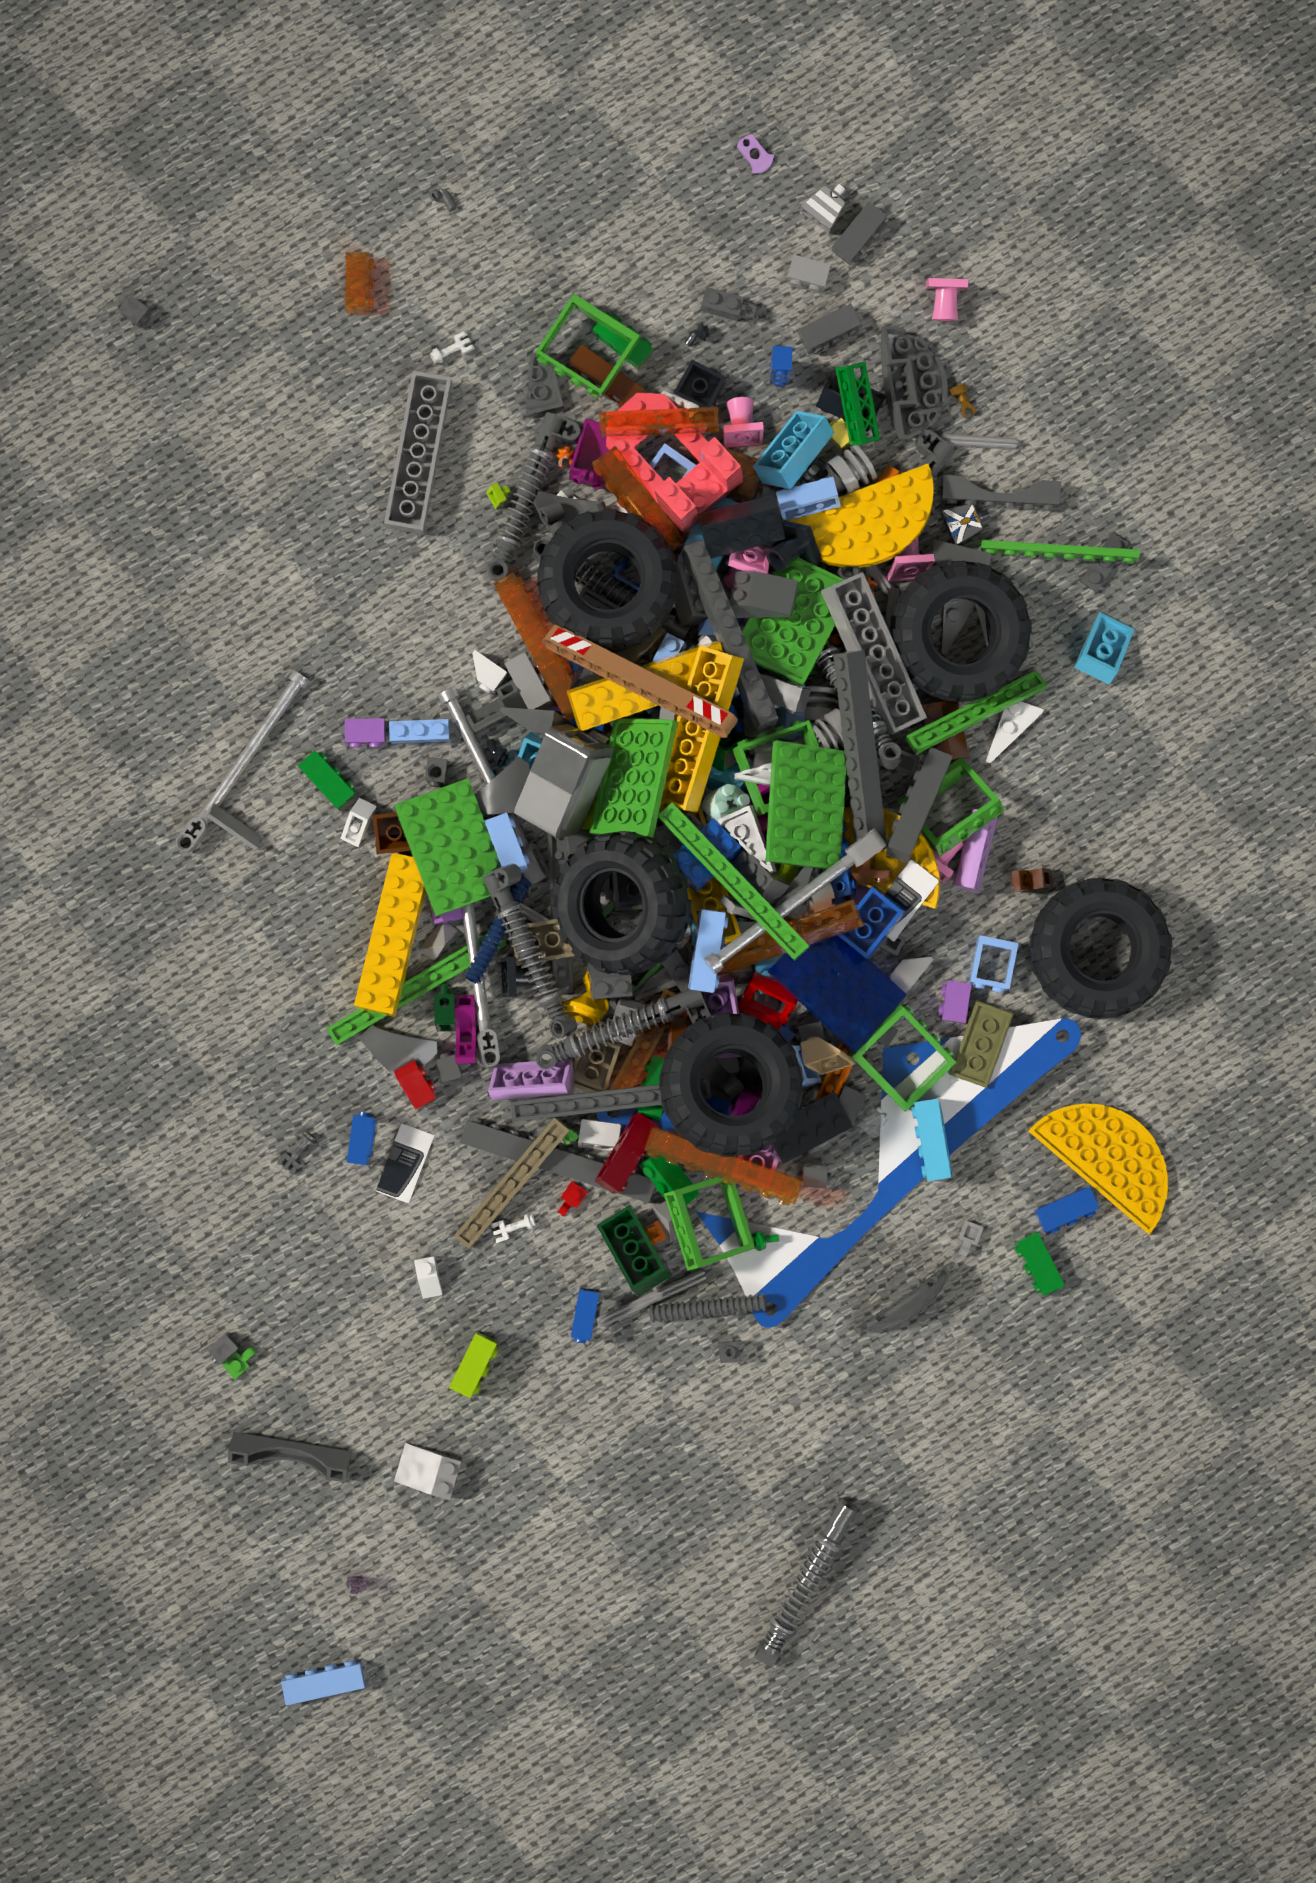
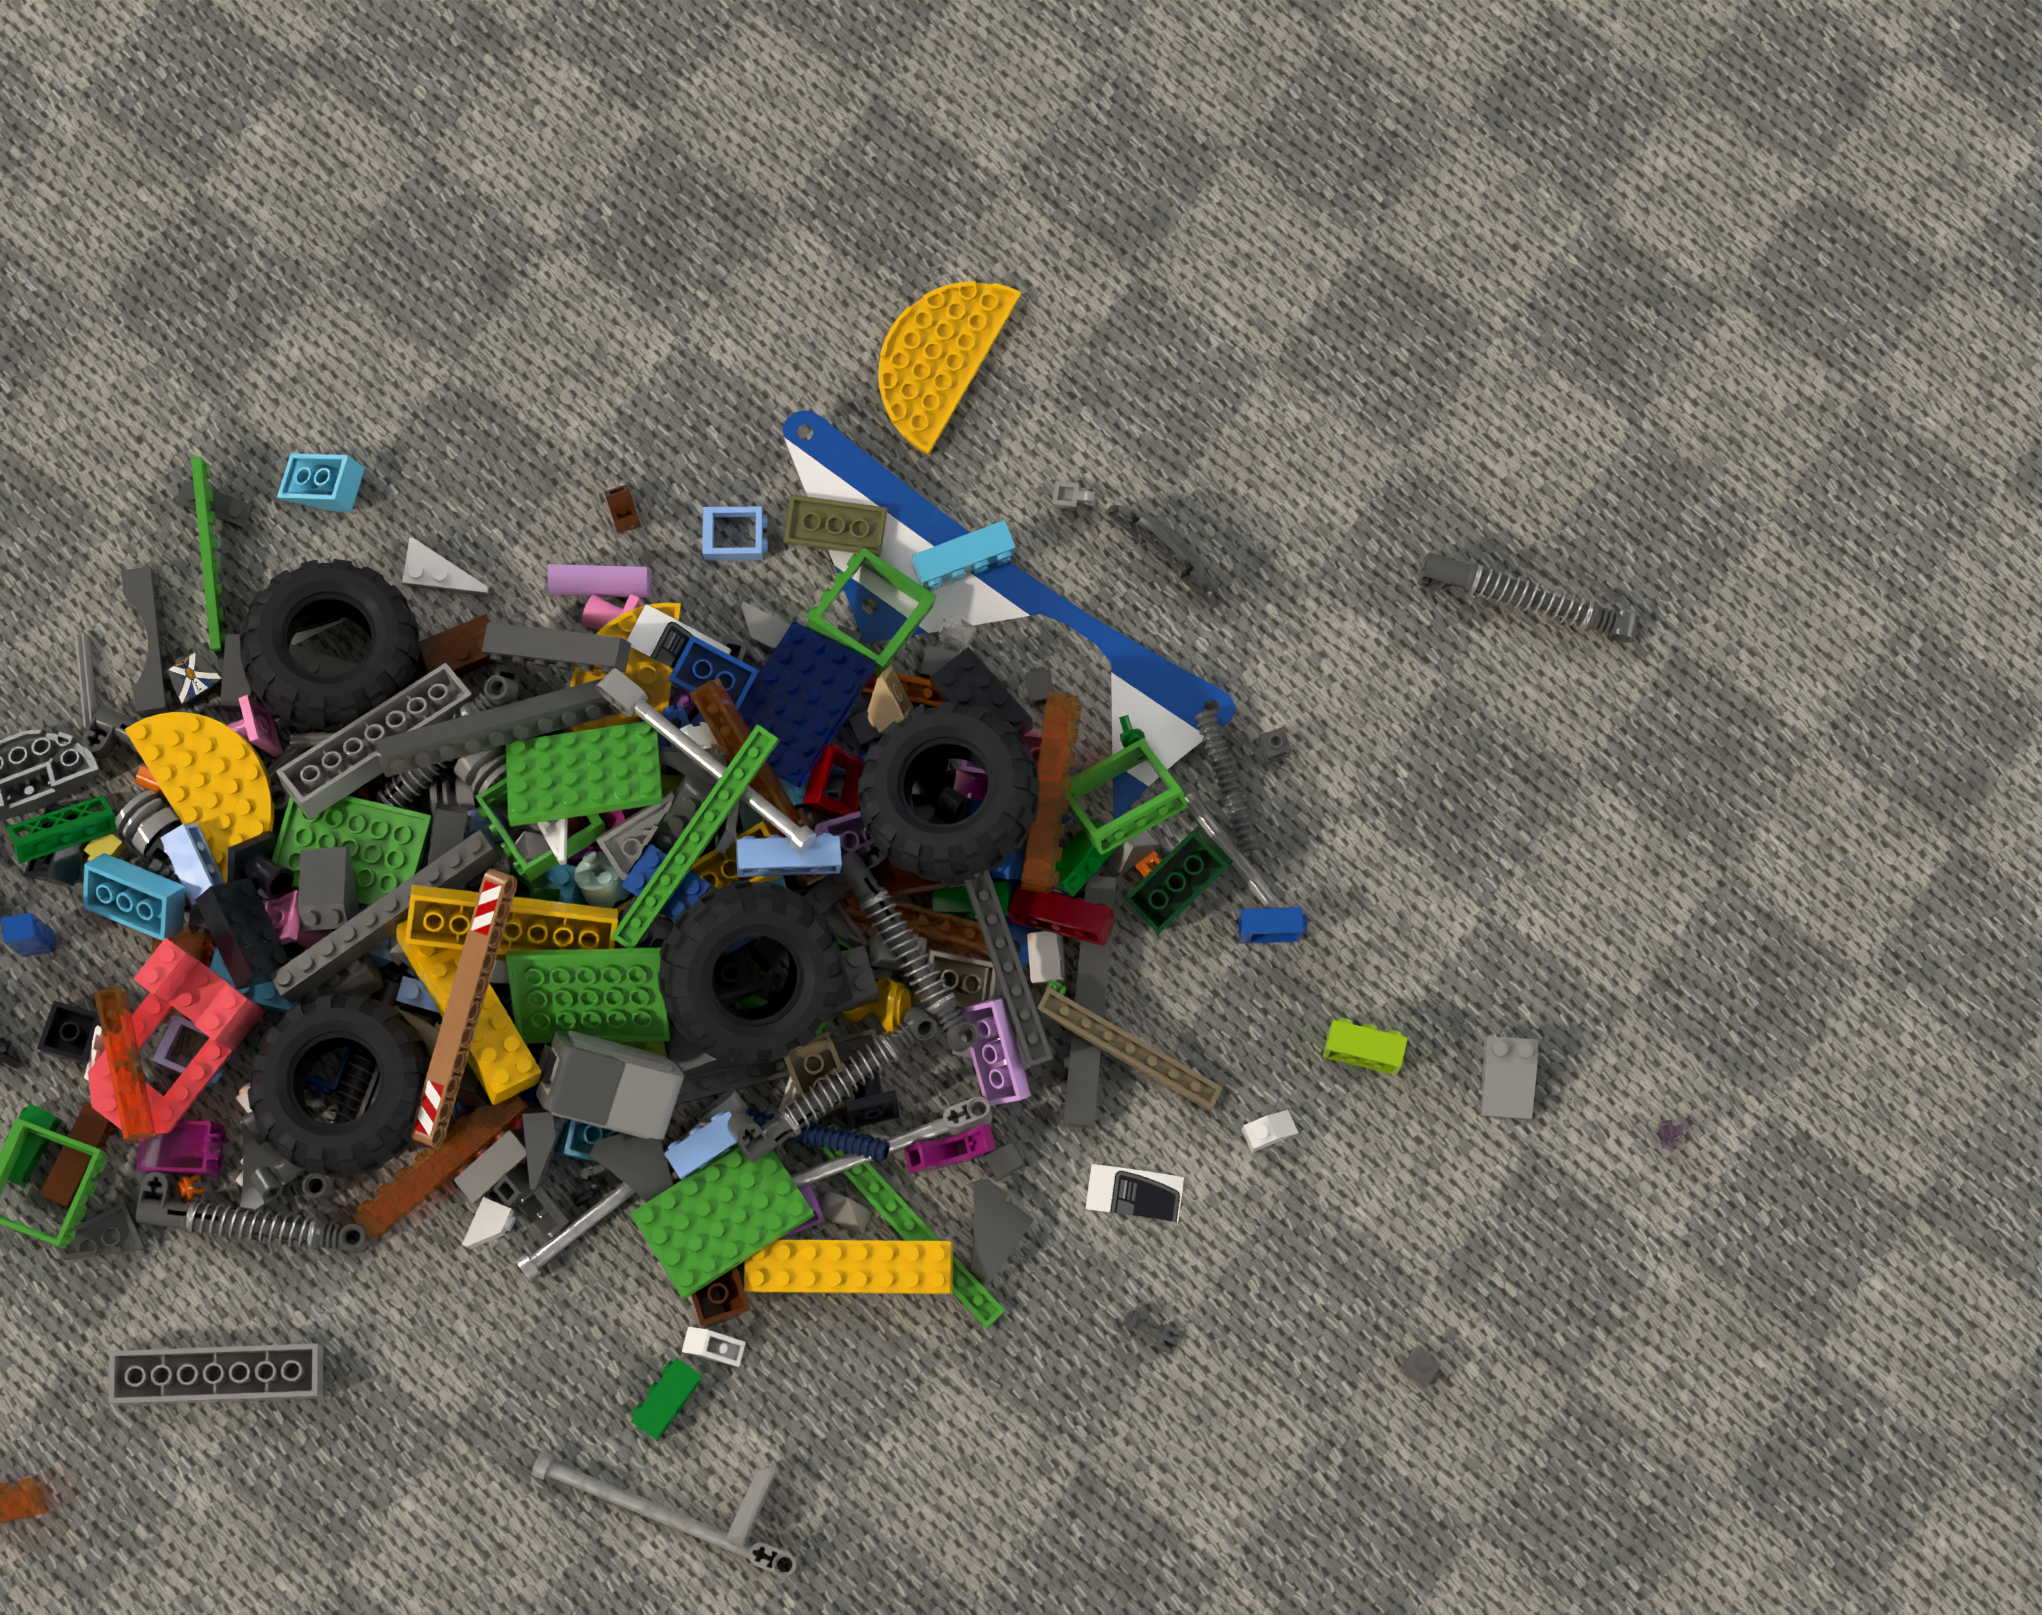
camera: 100 degrees left, 10 degrees down
(238, 1363) = (1434, 1345): bright green plate -> none
(250, 1449) = (1529, 1201): dark grey arch -> none
(324, 1682) = (1800, 1149): light blue brick -> none
(361, 1139) = (1117, 1249): blue window -> none
(365, 732) = (595, 1363): medium lavender brick -> none
(413, 1082) = (1032, 1197): red brick -> none
(419, 731) = (580, 1293): light blue brick -> none
(436, 763) = (618, 1256): dark grey brick -> none
(437, 356) = (83, 1380): white hinge -> none
(444, 1016) = (940, 1180): dark green torso -> none
(498, 495) = (255, 1261): lime tile -> none
(528, 1221) = (1189, 1051): white hinge -> none
(573, 1197) = (1129, 975): red plate -> none
(633, 495) = (221, 1086): clear orange brick -> none
(742, 429) = (116, 969): bright pink plant -> none
(865, 873) = (656, 695): reddish brown brick -> none
(955, 1001) = (790, 568): medium lavender brick -> none
(963, 398) = (36, 710): pearl gold piece -> none
(972, 823) = (569, 584): bright green window -> none
(976, 712) = (429, 612): bright green plate -> none
(1038, 1264) = (1084, 409): green brick -> none
(1067, 1210) = (1013, 390): blue brick -> none
(1148, 942) = (679, 355): black tyre -> none

